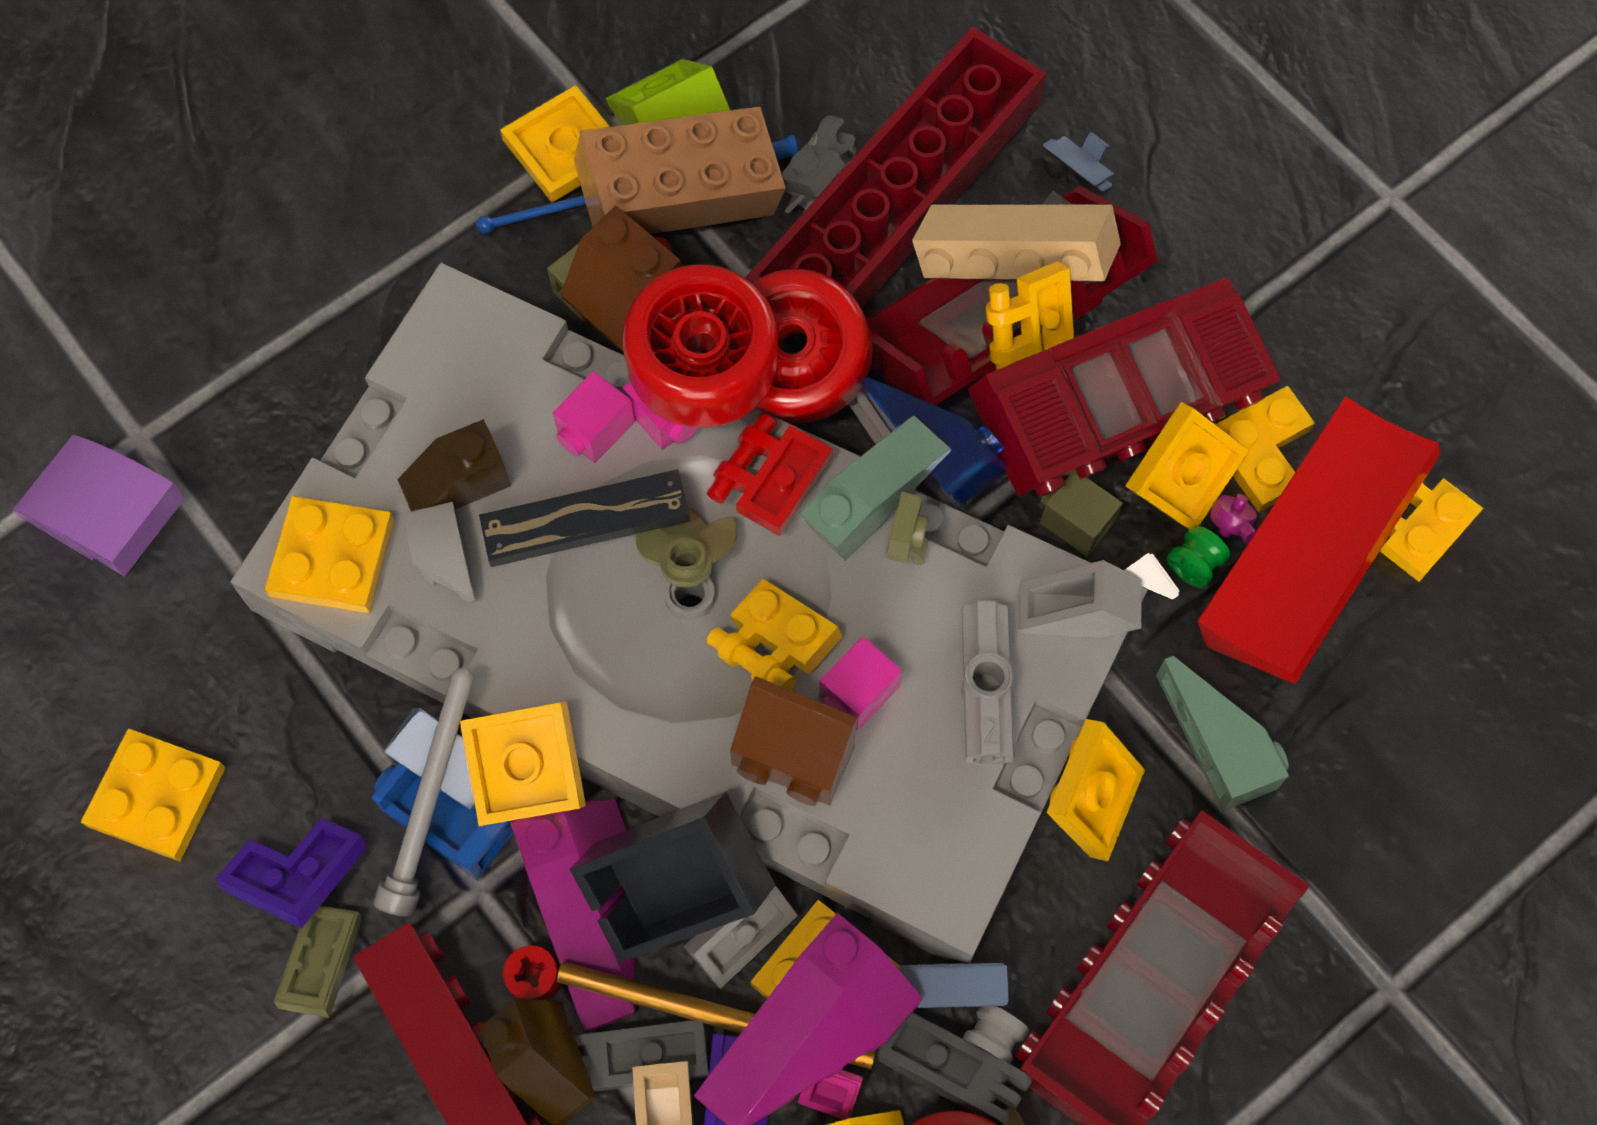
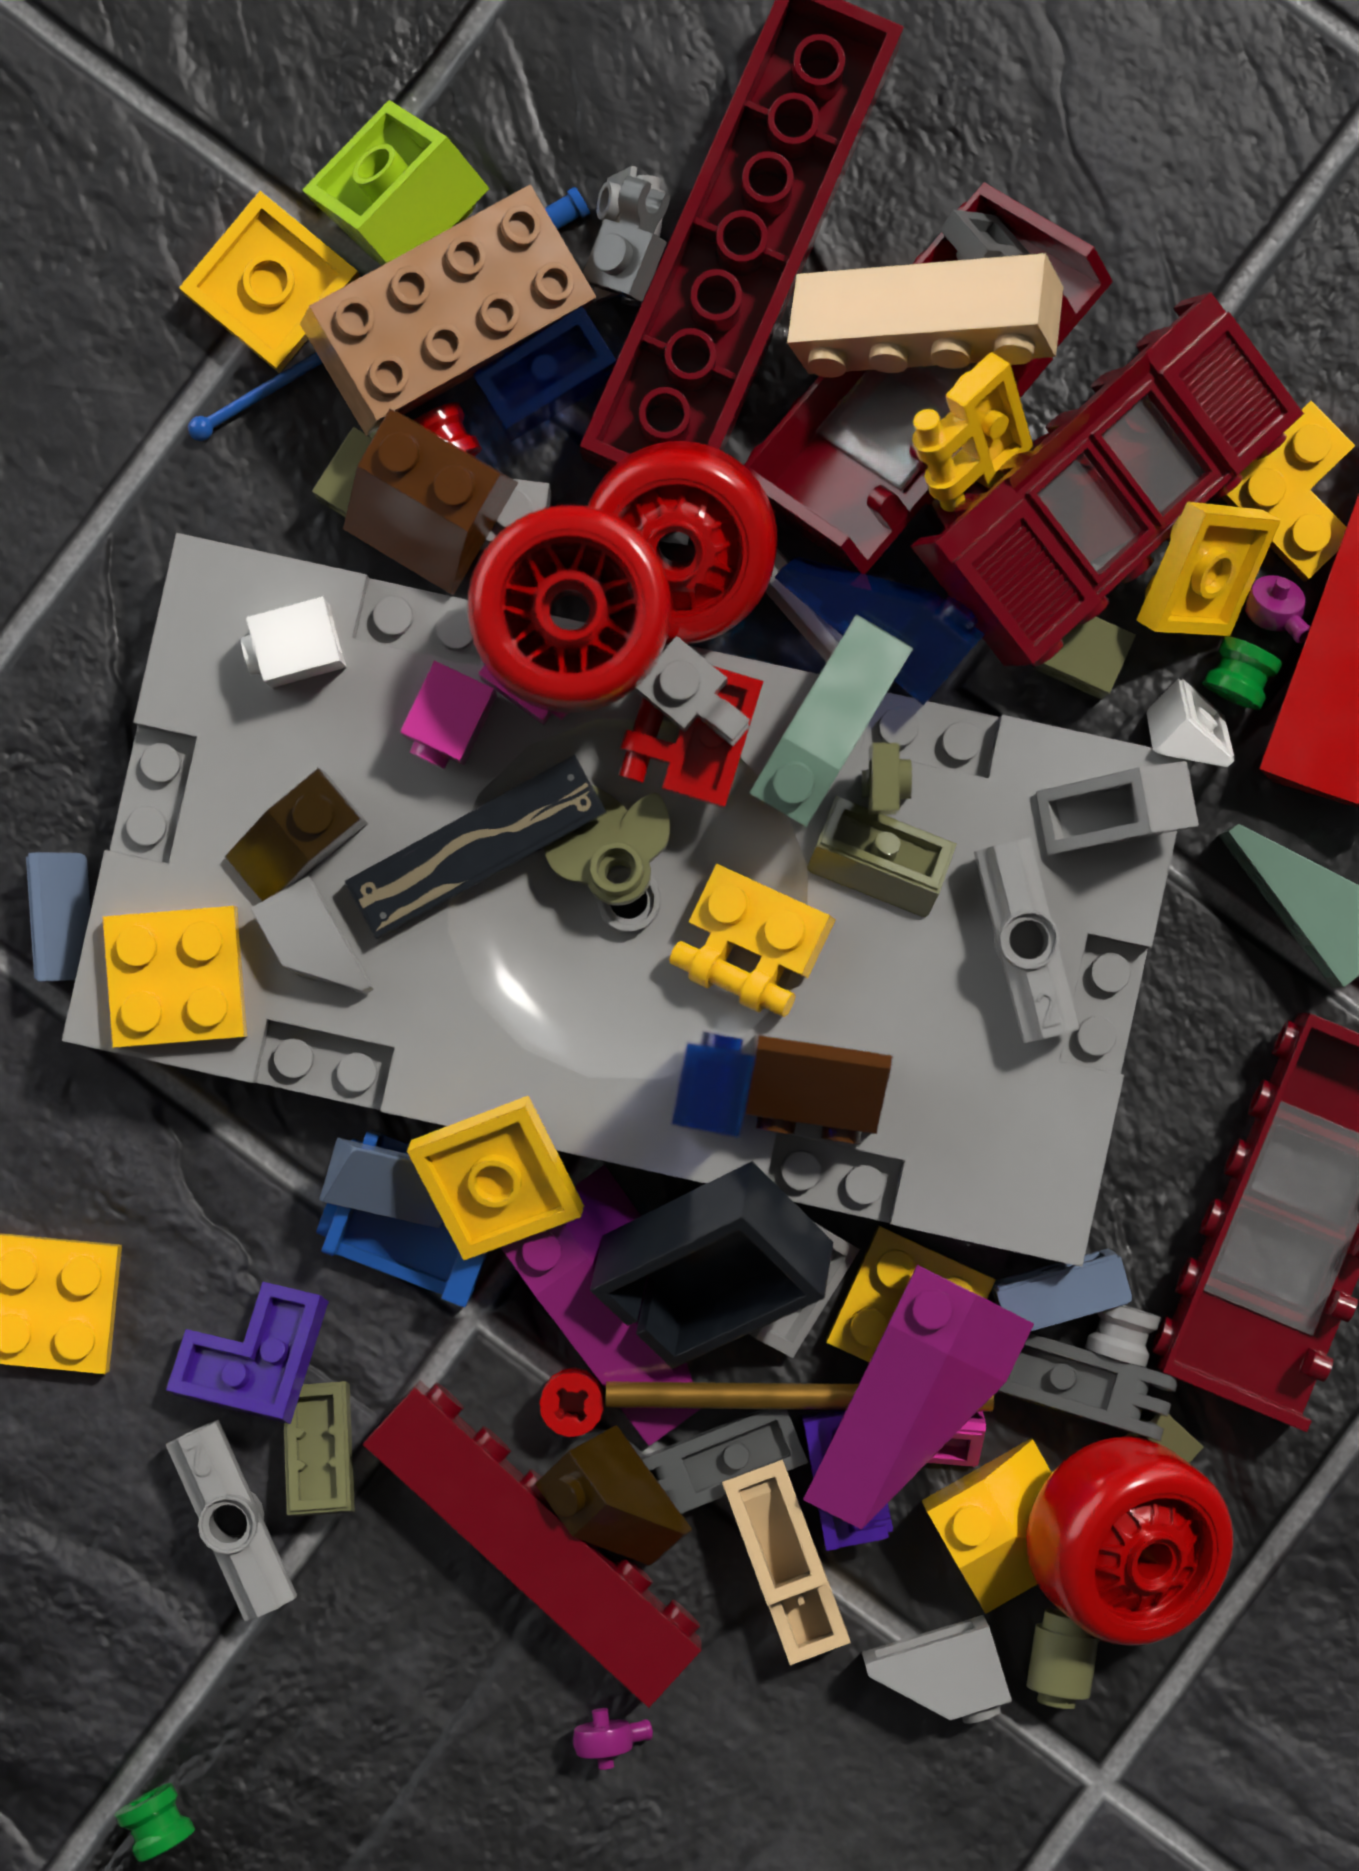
camera: 15 degrees left, 20 degrees up
(229, 1032) = (246, 1559): none -> light grey piece
(263, 497) = (57, 913): none -> sand blue slope
(399, 891) = (385, 1347): light grey piece -> none
(497, 344) = (293, 643): none -> white brick
(707, 710) = (713, 1085): none -> clear blue brick
(735, 232) = (545, 374): none -> clear blue brick
(776, 436) = (687, 689): none -> light grey plate
(860, 682) = (873, 984): dark pink brick -> none
(889, 601) = (881, 857): none -> olive slope
(1083, 159) = (973, 120): sand blue piece -> none
(1095, 790) = (1178, 1017): yellow plate -> none

